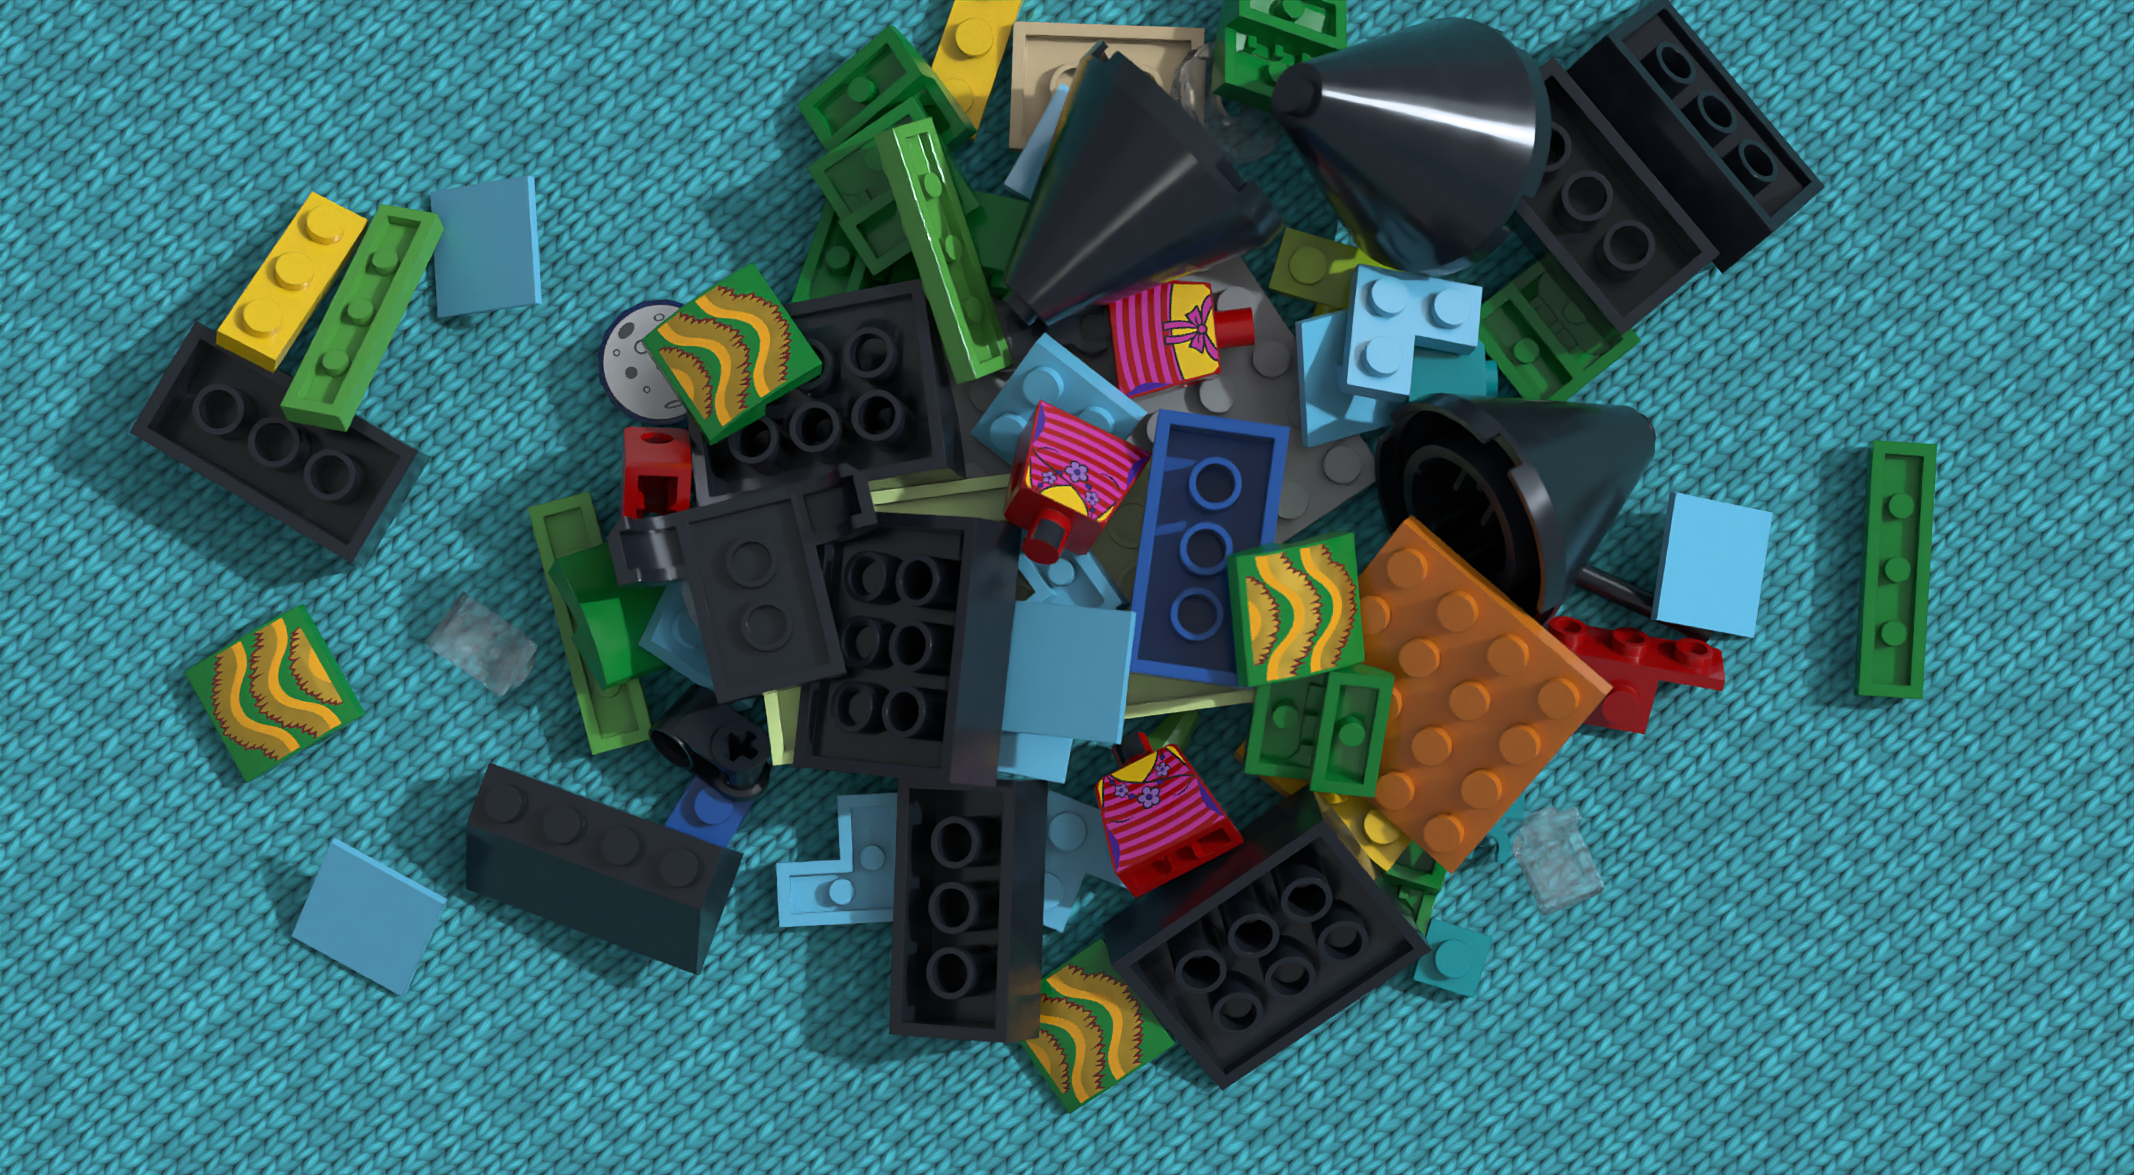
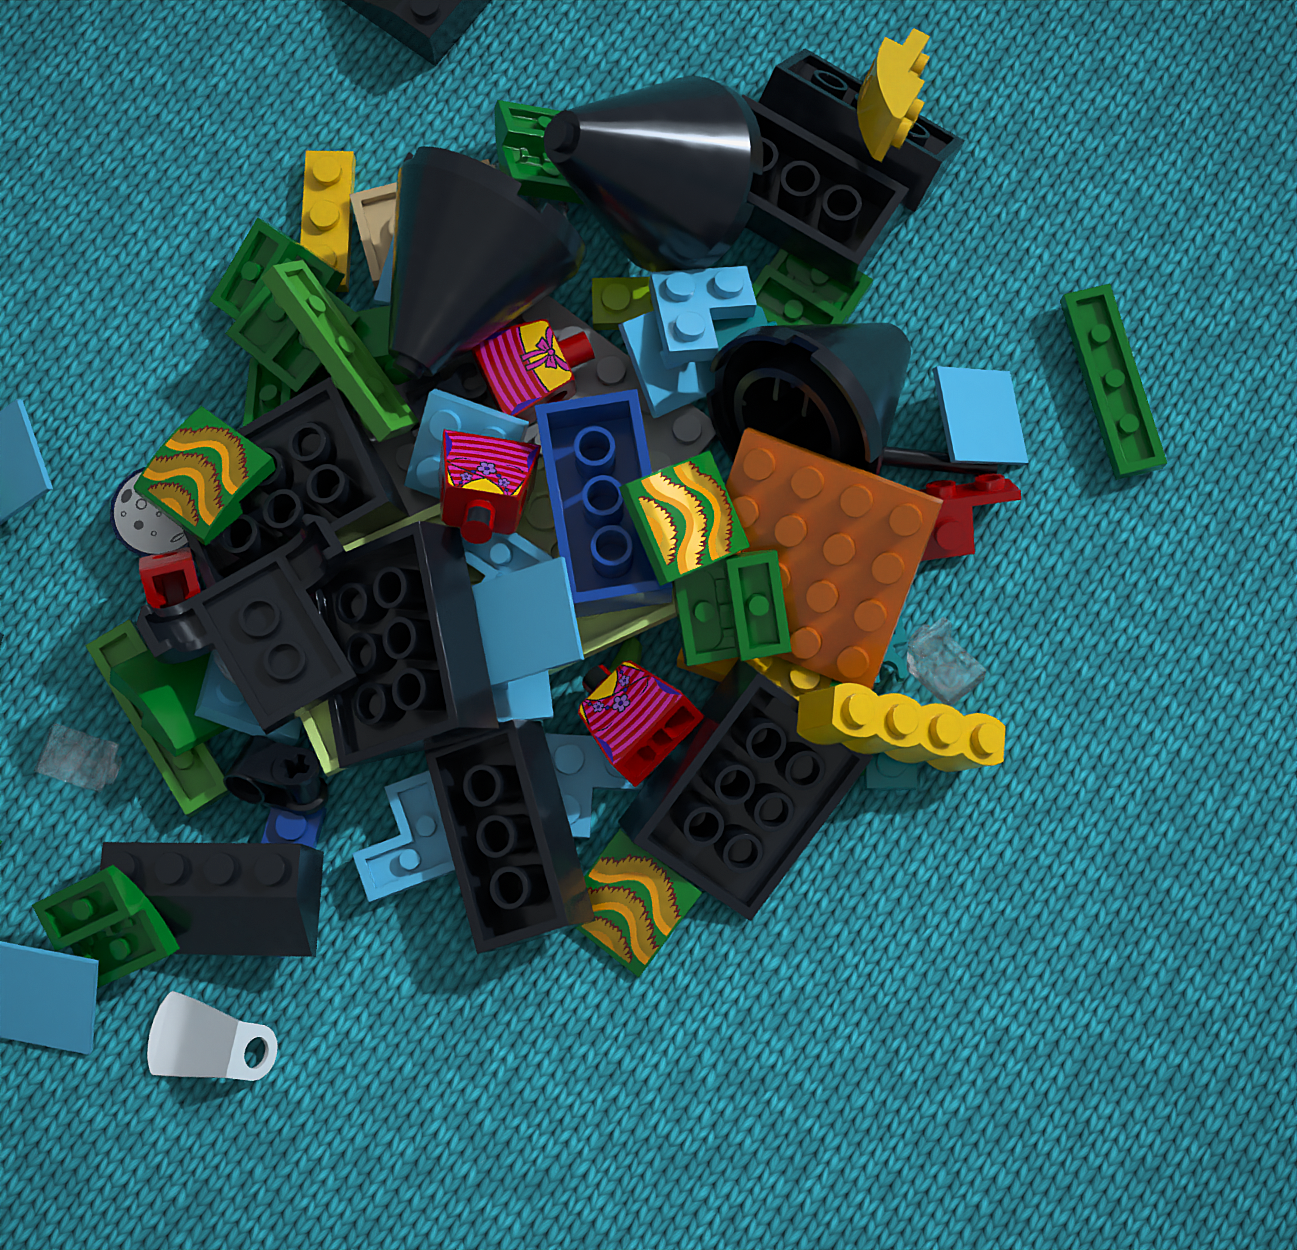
camera: 20 degrees left, 10 degrees down
(470, 859) = (107, 922): none -> green slope
(539, 1026) = (204, 1042): none -> white piece
(1473, 932) = (900, 728): none -> yellow brick
(1741, 120) = (890, 92): none -> yellow slope

